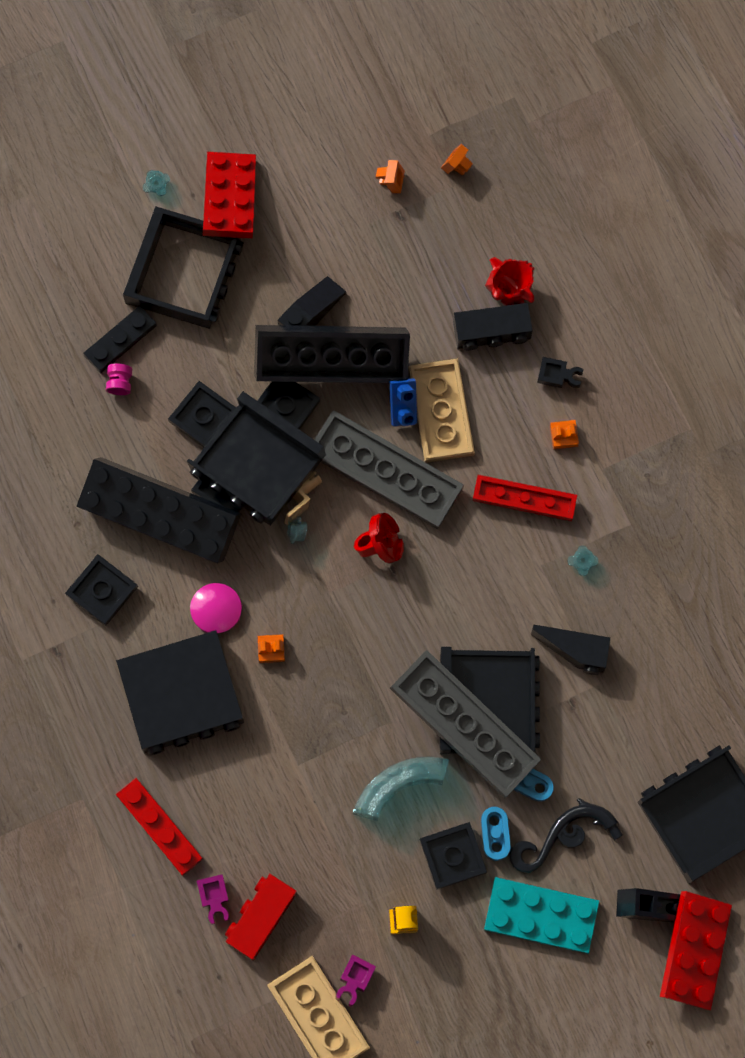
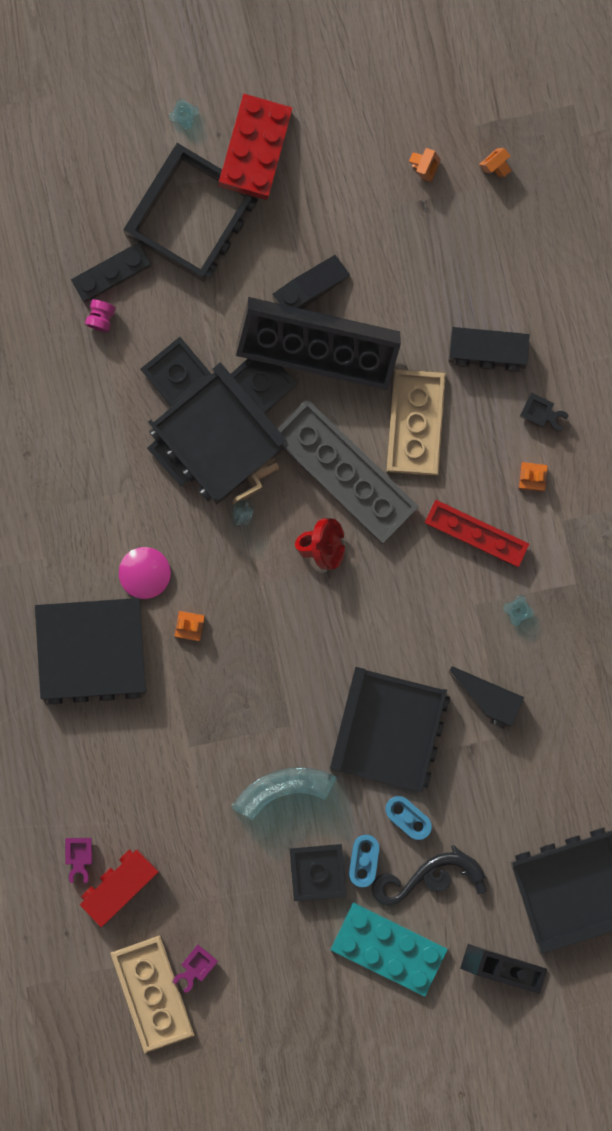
camera: 10 degrees right, 10 degrees up
(101, 590) = (36, 528): black plate -> none
(158, 510) = (109, 462): black brick -> none
(159, 826) = (41, 776): red plate -> none
(403, 402) = (379, 409): blue hips -> none
(403, 919) = (254, 923): yellow leg -> none
(465, 724) = (360, 750): dark grey plate -> none
(511, 281) = (518, 307): red hair -> none
(695, 950) = (527, 1019): red plate -> none

